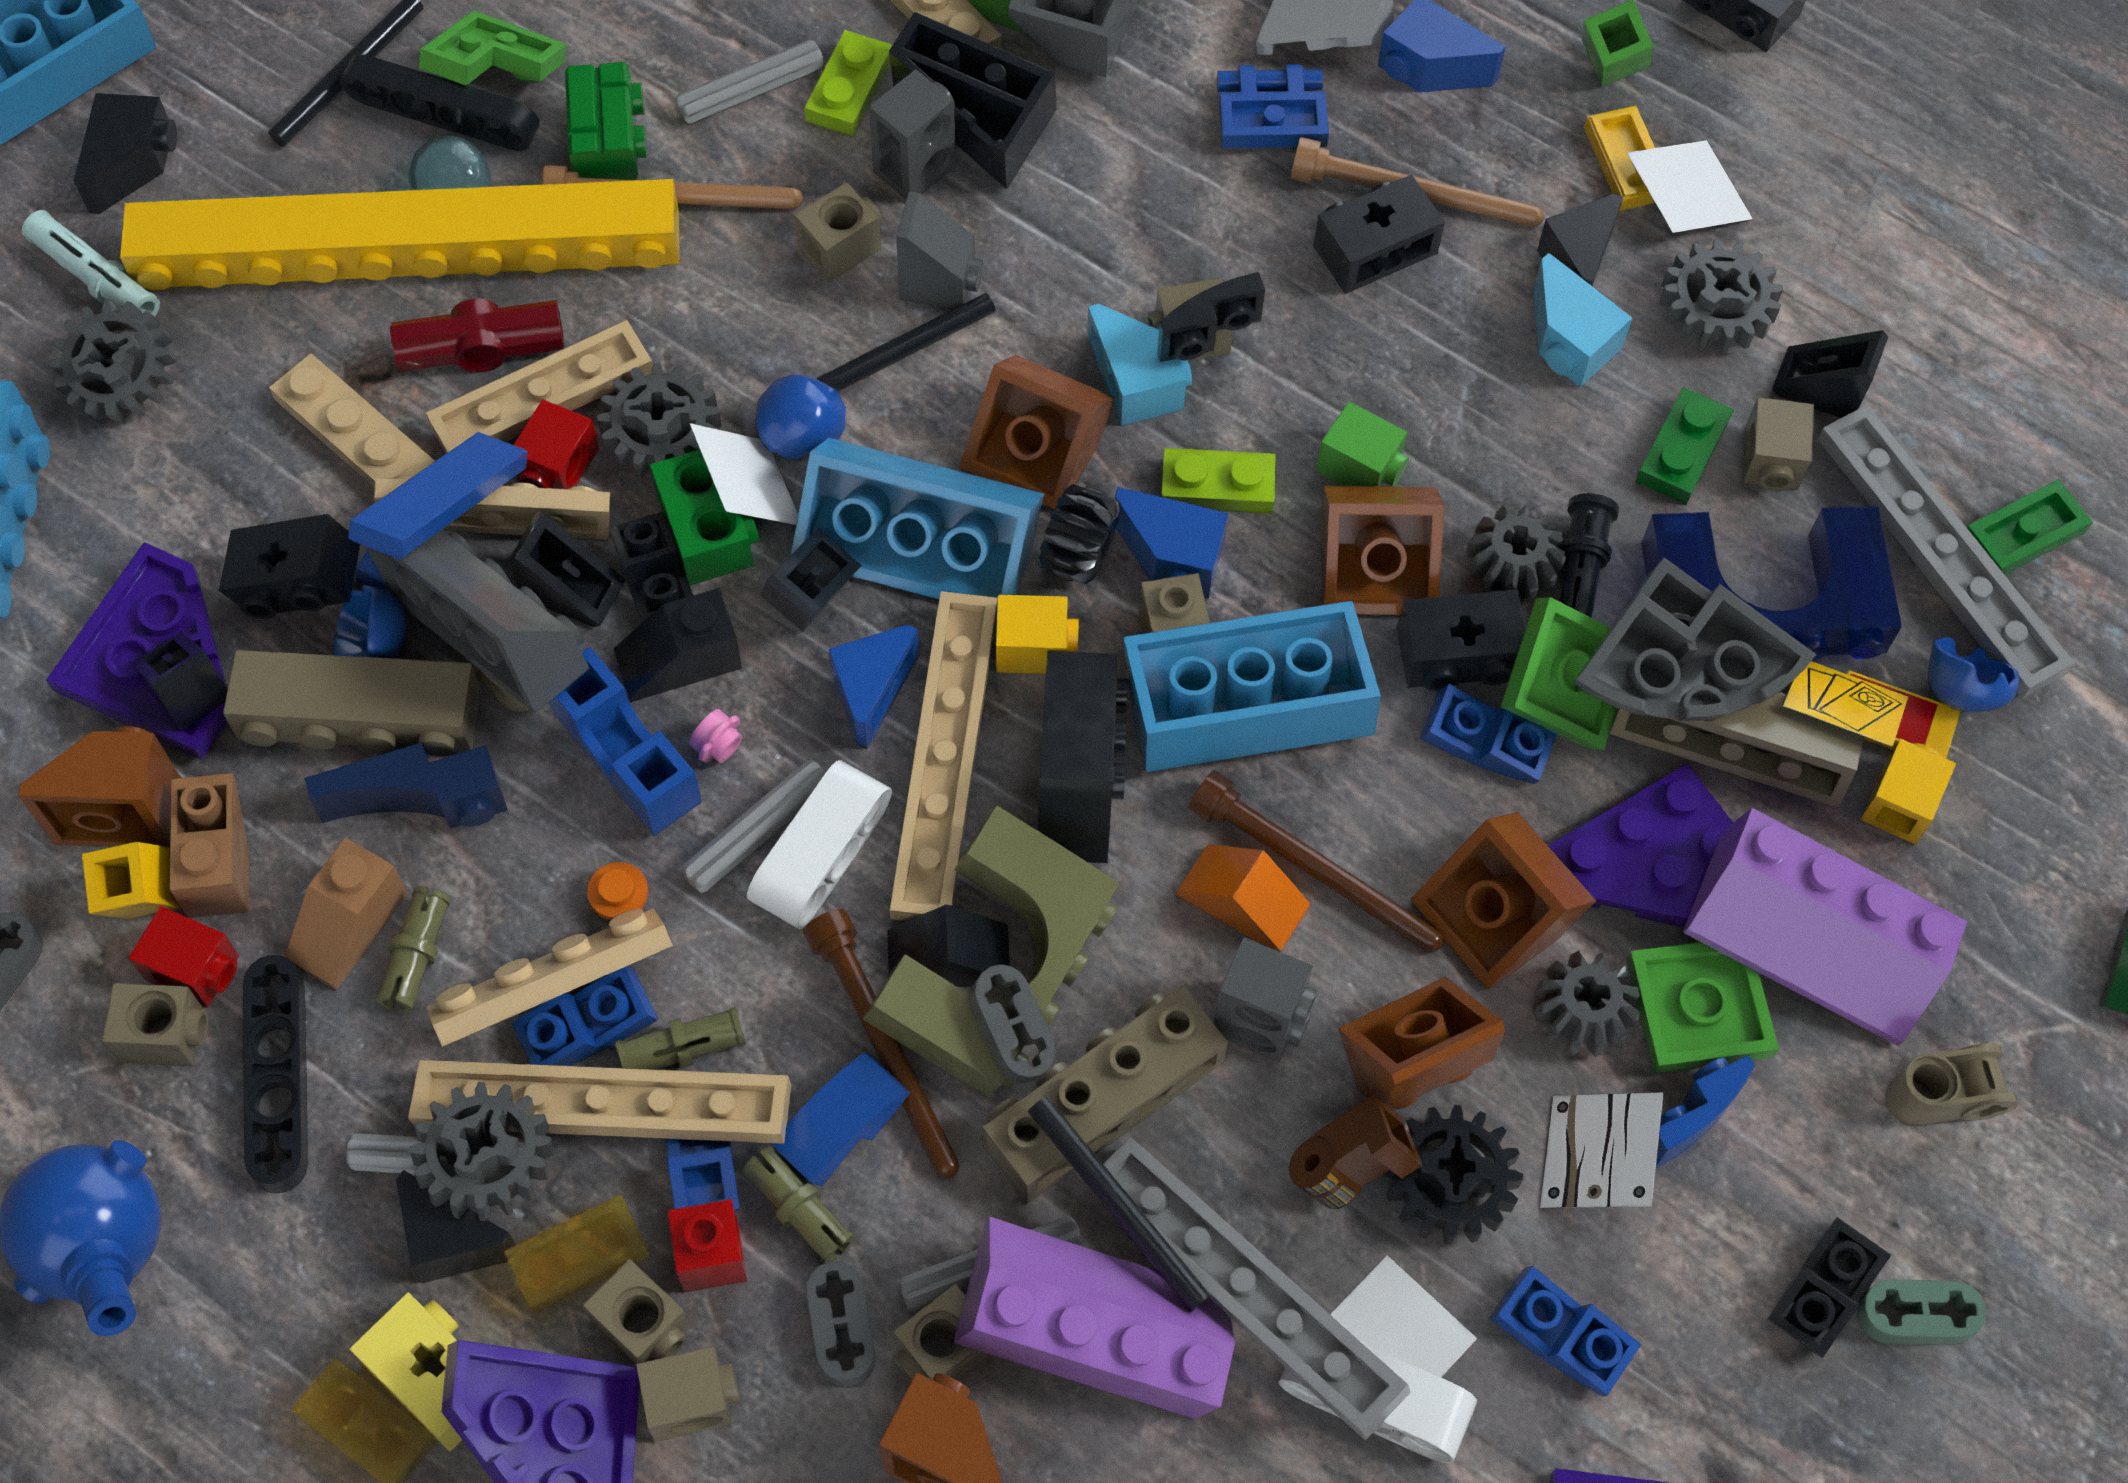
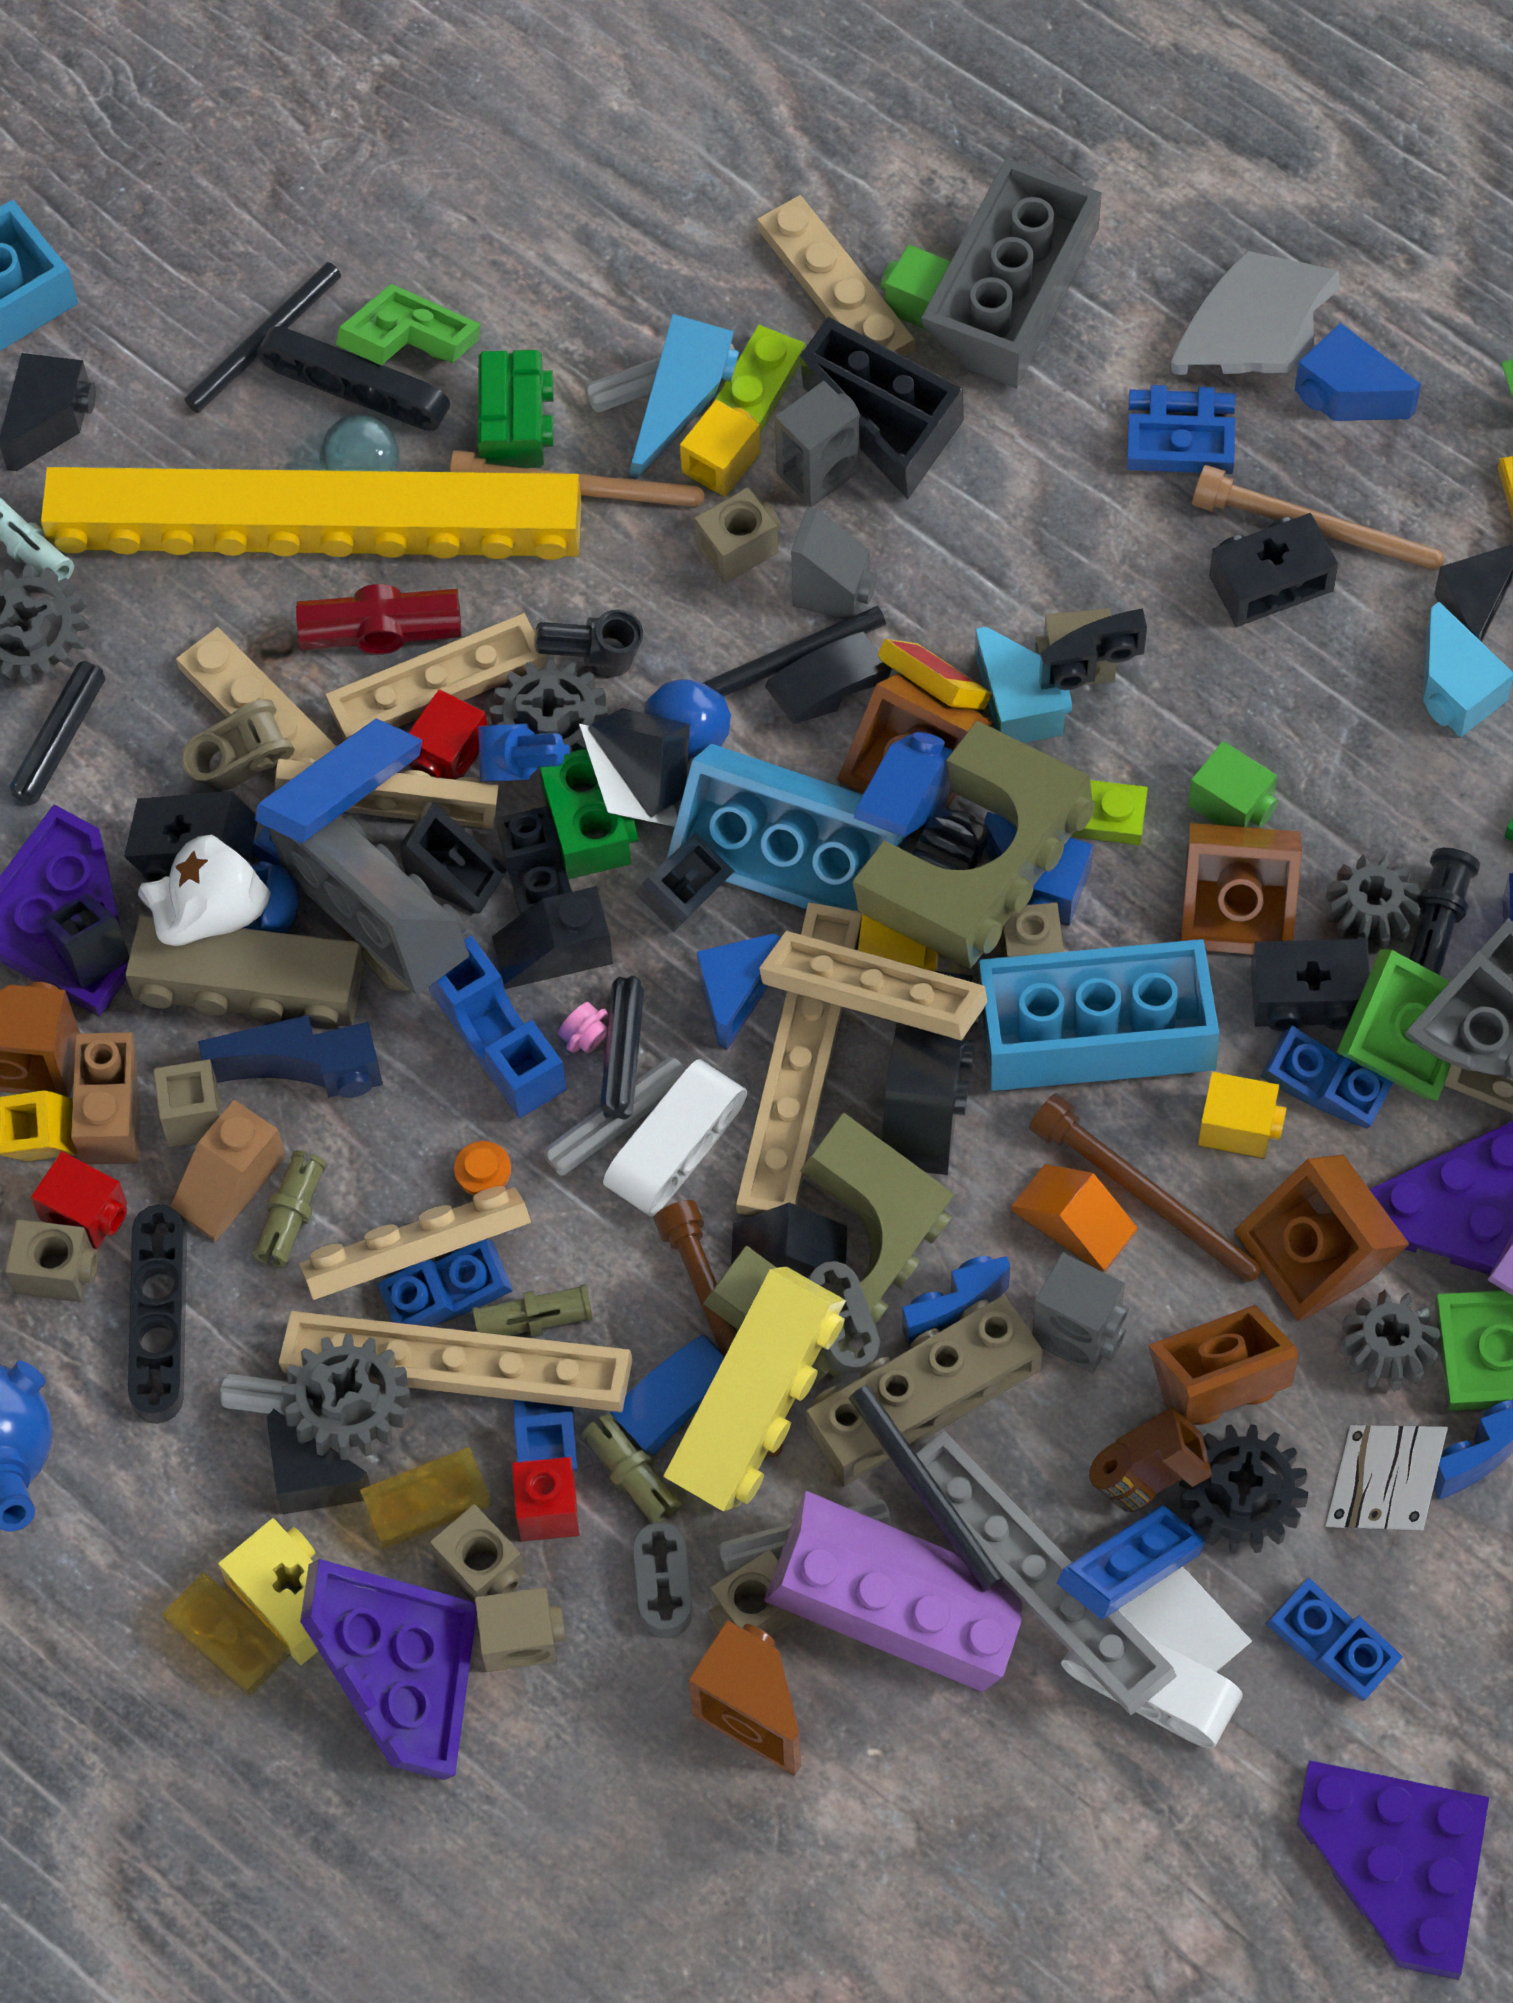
camera: 10 degrees right, 0 degrees up
(147, 470) = (57, 732): none -> black axle
(295, 841) = (187, 1101): none -> dark tan brick
(303, 621) = (206, 894): none -> white piece
(343, 464) = (247, 743): none -> dark tan piece
(625, 457) = (516, 752): none -> blue axle
(697, 343) = (589, 641): none -> black axle
(757, 755) = (622, 1048): none -> black axle
(764, 452) = (648, 755): none -> black slope
(774, 88) = (685, 382): none -> dark azure slope
(815, 148) = (721, 447): none -> yellow brick
(926, 1110) = (756, 1388): none -> light yellow brick
(935, 366) = (822, 678): none -> black slope
(1017, 670) = (874, 985): none -> tan plate
(1035, 463) = (907, 785): none -> blue slope
(1049, 355) = (934, 675): none -> yellow tile
(1107, 585) = (966, 909): none -> olive arch
(1144, 976) = (973, 1281): none -> blue slope
(1345, 1267) = (1131, 1562): none -> blue tile
(1406, 779) = (1241, 1115): none -> yellow brick

